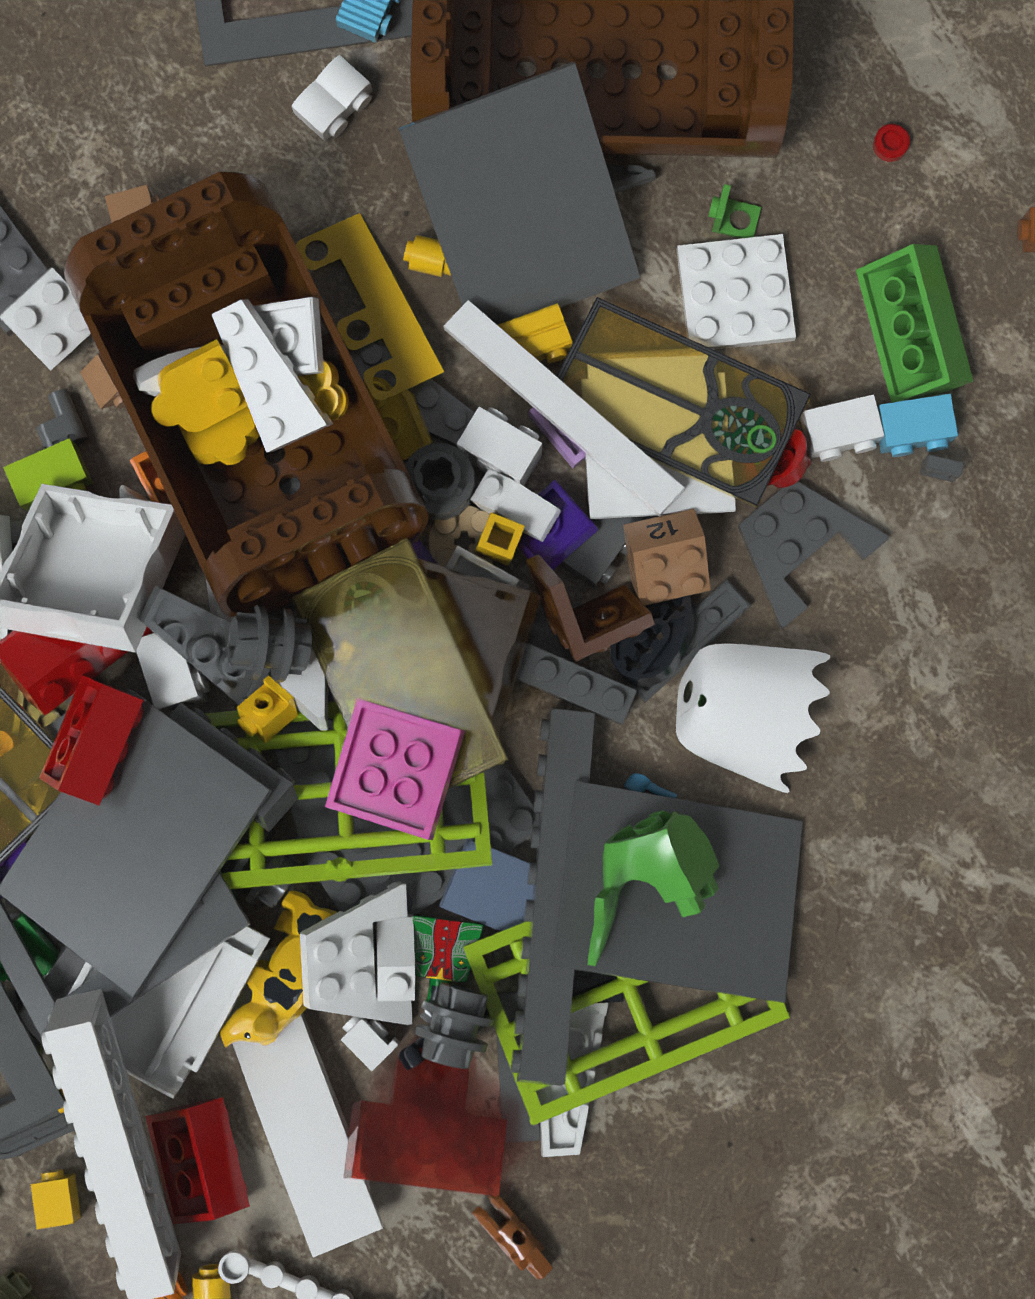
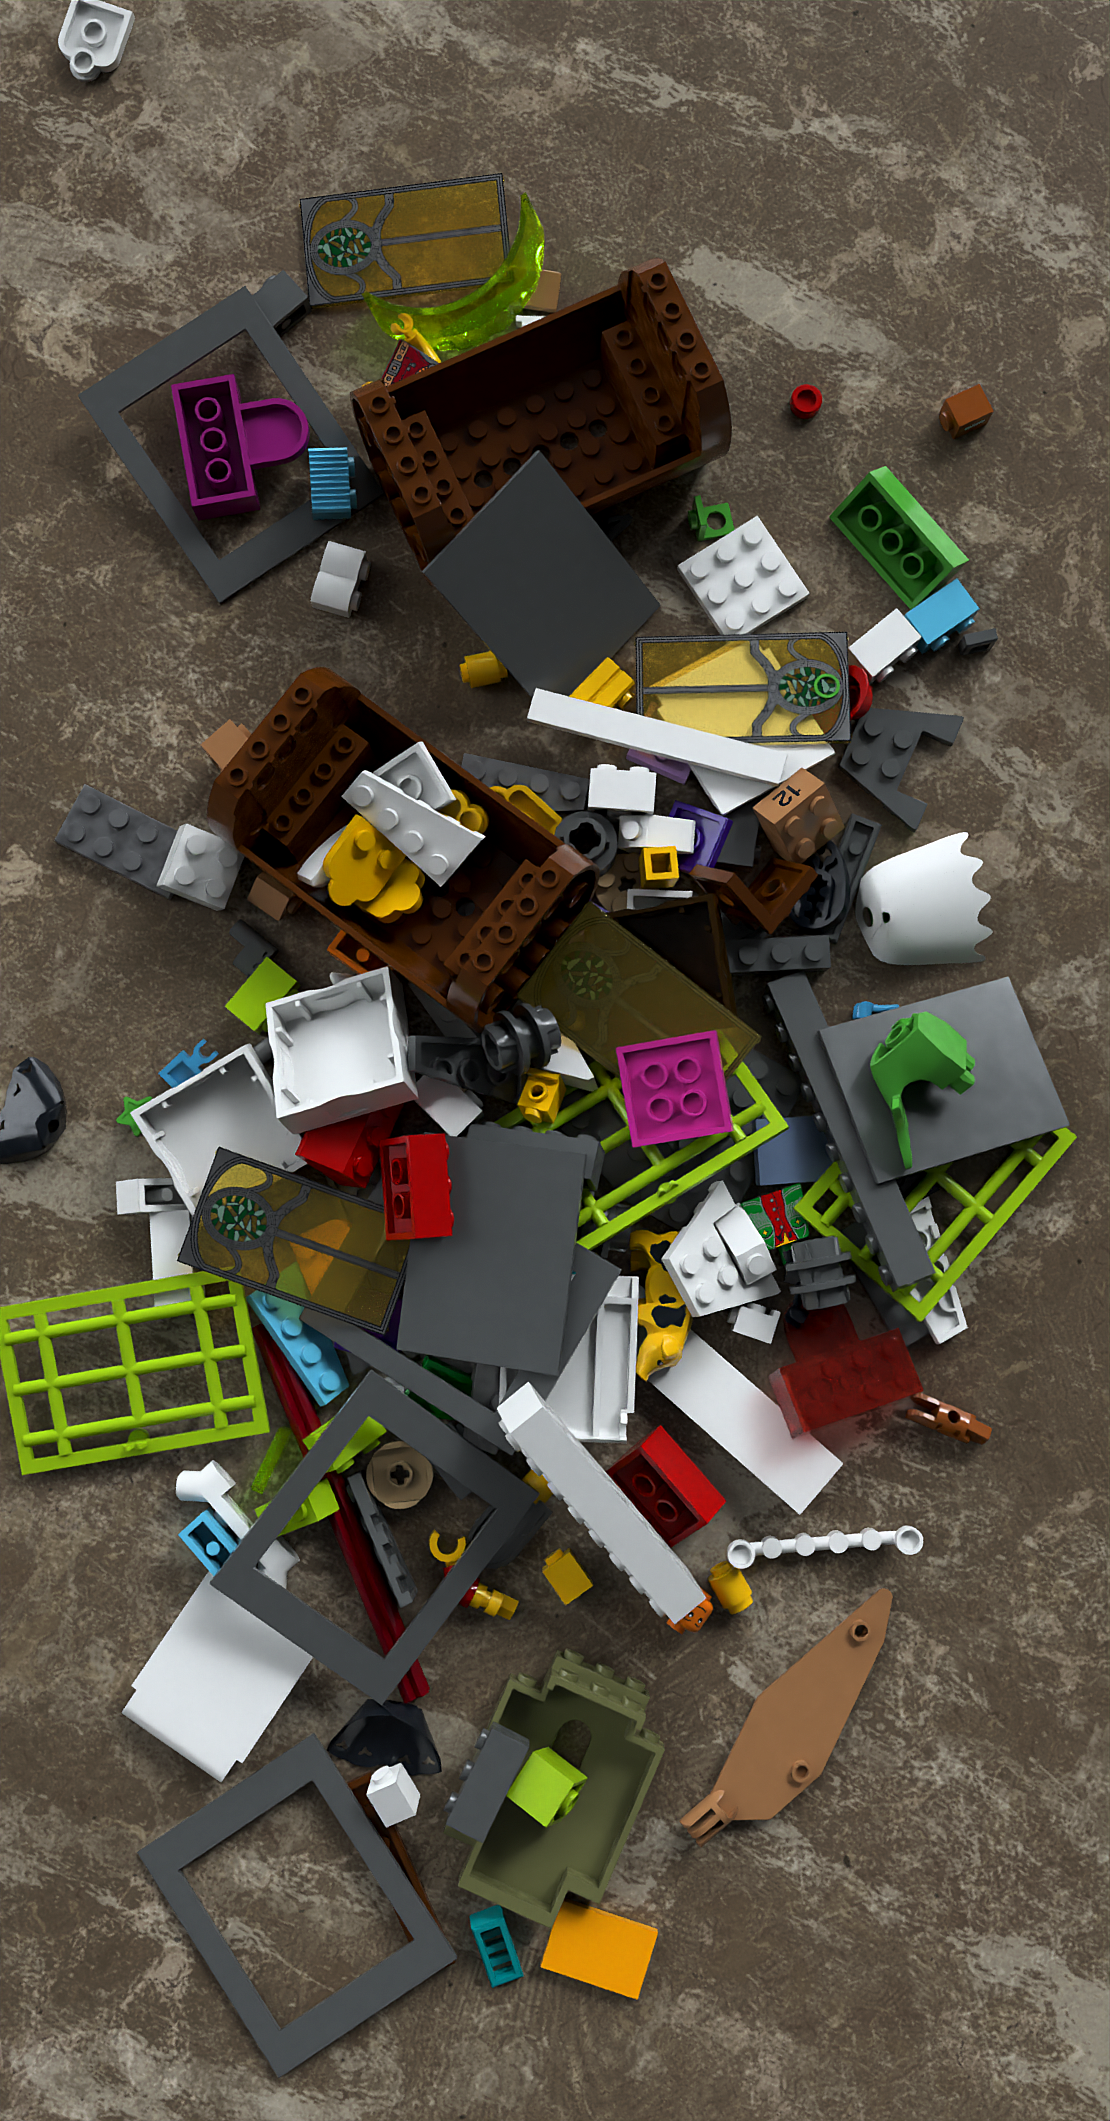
camera: 30 degrees left, 0 degrees up
(385, 304) = (468, 726): yellow piece -> none

